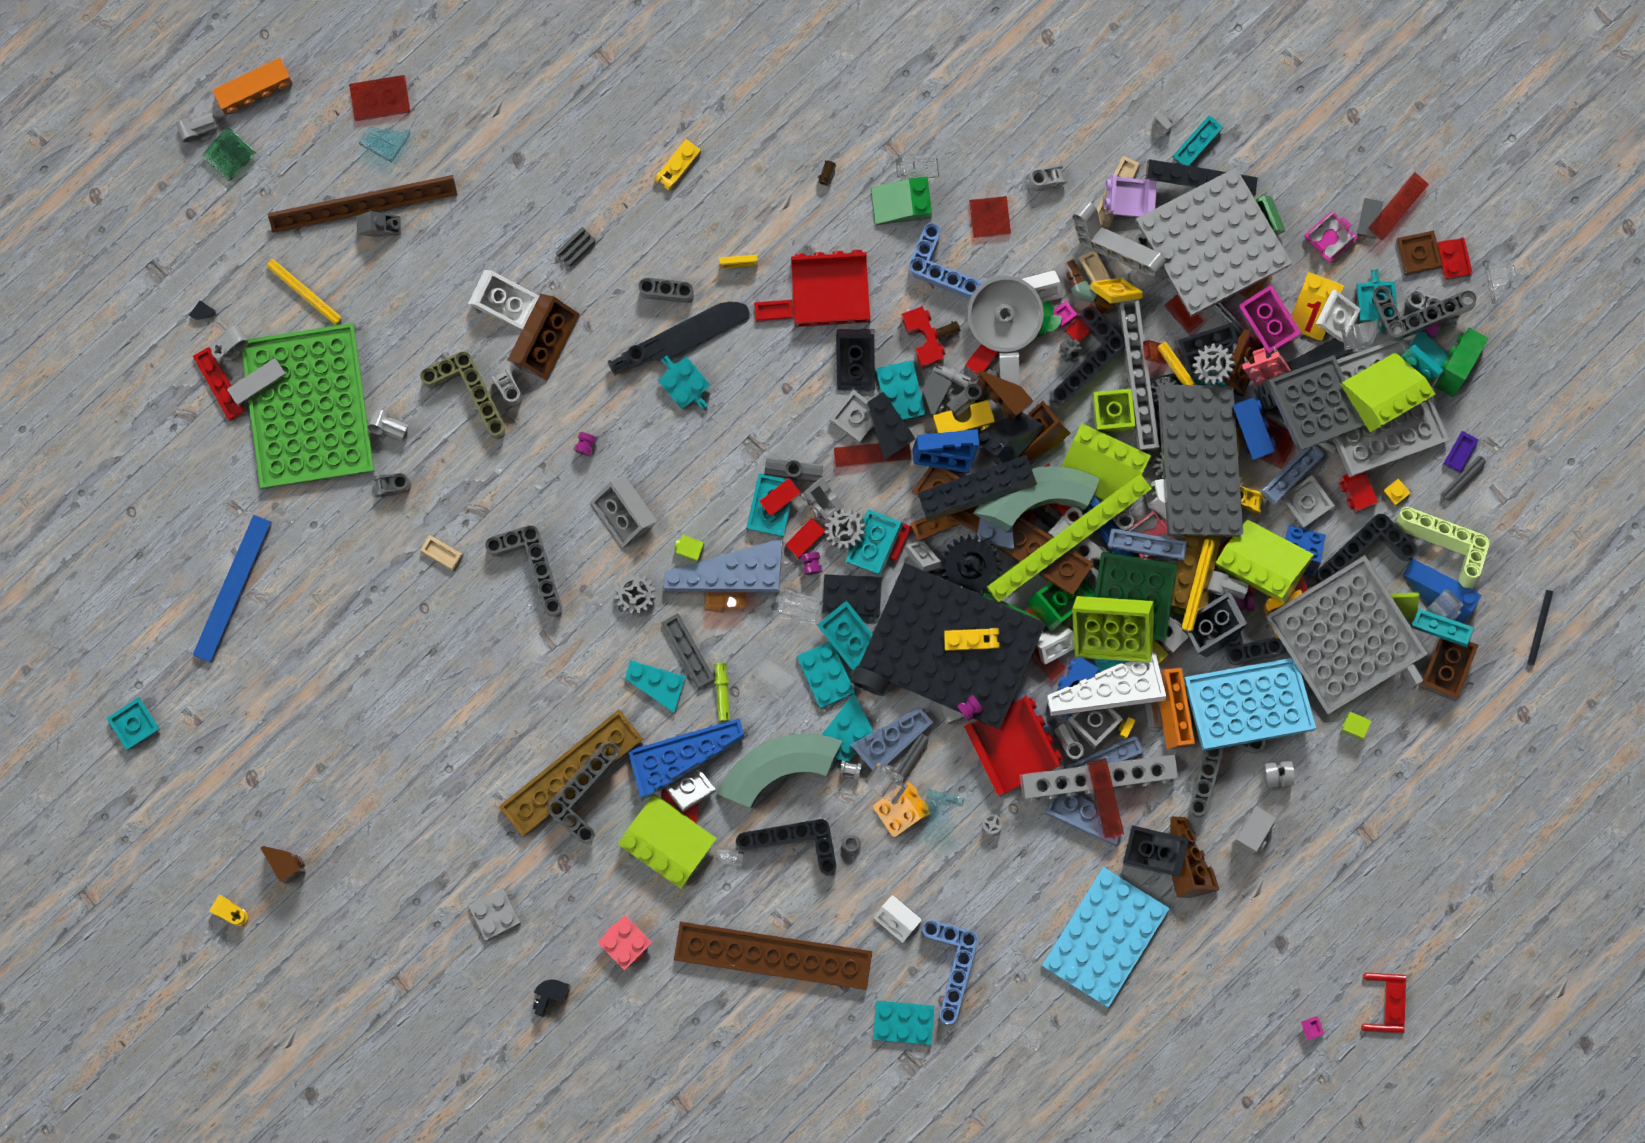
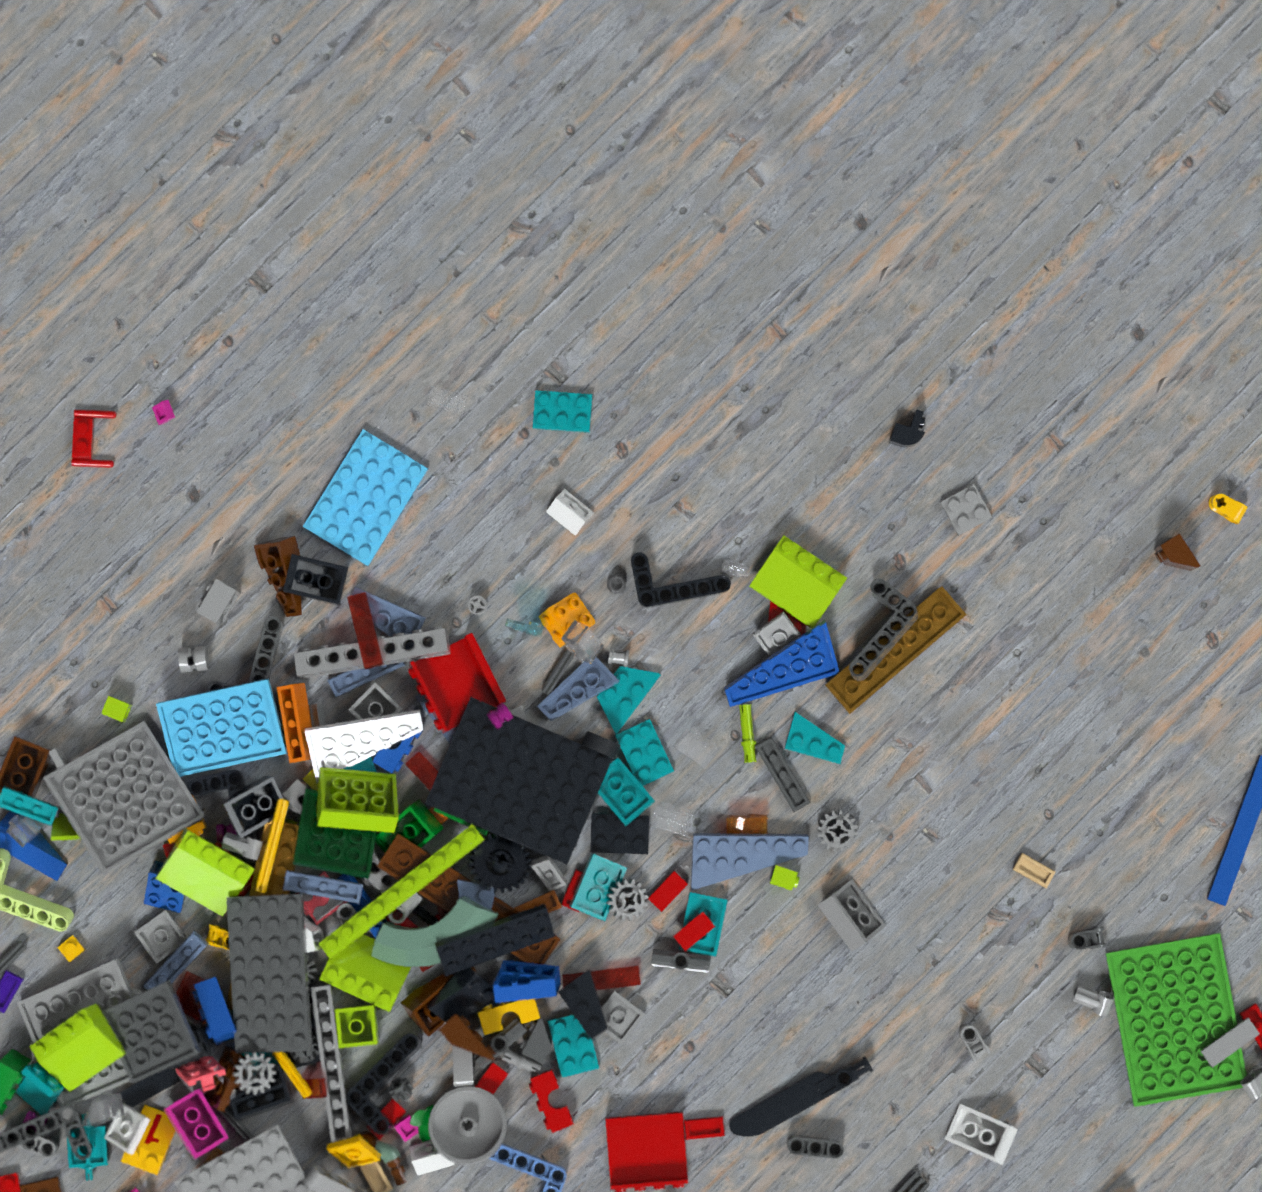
camera: 175 degrees right, 5 degrees up
(304, 292) = (1185, 1139): yellow axle -> none
(473, 387) = (1009, 1040): olive beam -> none
(536, 563) = (939, 860): dark grey beam -> none
(543, 336) = (939, 1096): reddish brown slope -> none
(585, 444) = (892, 984): magenta wheel -> none
(624, 942) = (837, 483): coral piece -> none
(684, 382) = (793, 1049): teal plate -> none
(738, 261) = (741, 1178): yellow tile -> none
(773, 955) = (691, 473): reddish brown plate -> none
(776, 760) = (690, 665): sand green brick -> none
(811, 563) = (661, 860): magenta wheel -> none
(822, 499) = (650, 930): light grey cylinder -> none
(855, 359) = (619, 1077): black slope -> none
(948, 330) = (525, 1109): dark brown pin -> none
(957, 967) = (504, 463): medium blue beam -> none
(971, 639) = (499, 785): yellow plate -> none
(1055, 644) = (415, 786): white panel -> none
(1069, 740) = (402, 690): light grey piece -> none
(1125, 727) = (344, 704): yellow plate -> none
(1181, 315) = (291, 1134): clear red tile -> none
(1358, 492) = (109, 946): red brick -> none
(1361, 545) = (107, 891): black beam -> none

